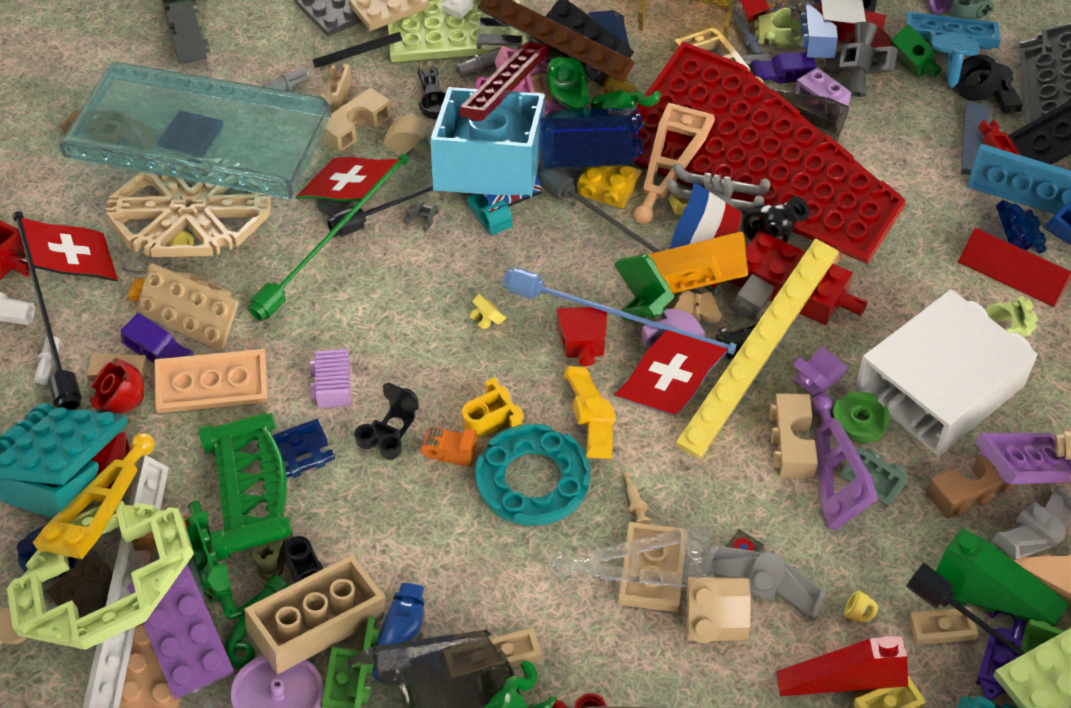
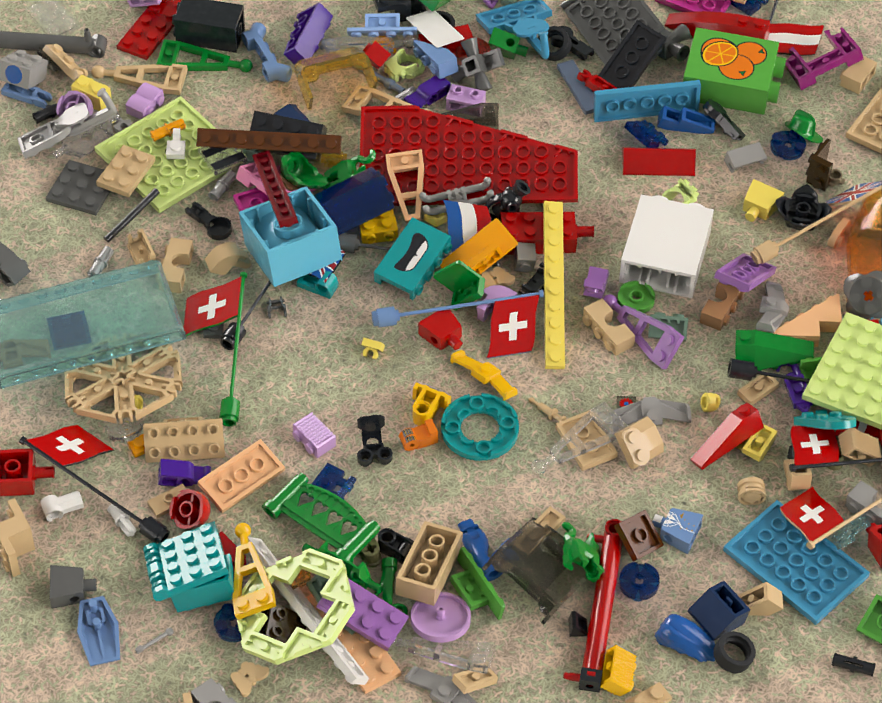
camera: 35 degrees left, 0 degrees up
(614, 231) = (413, 257): none -> teal panel

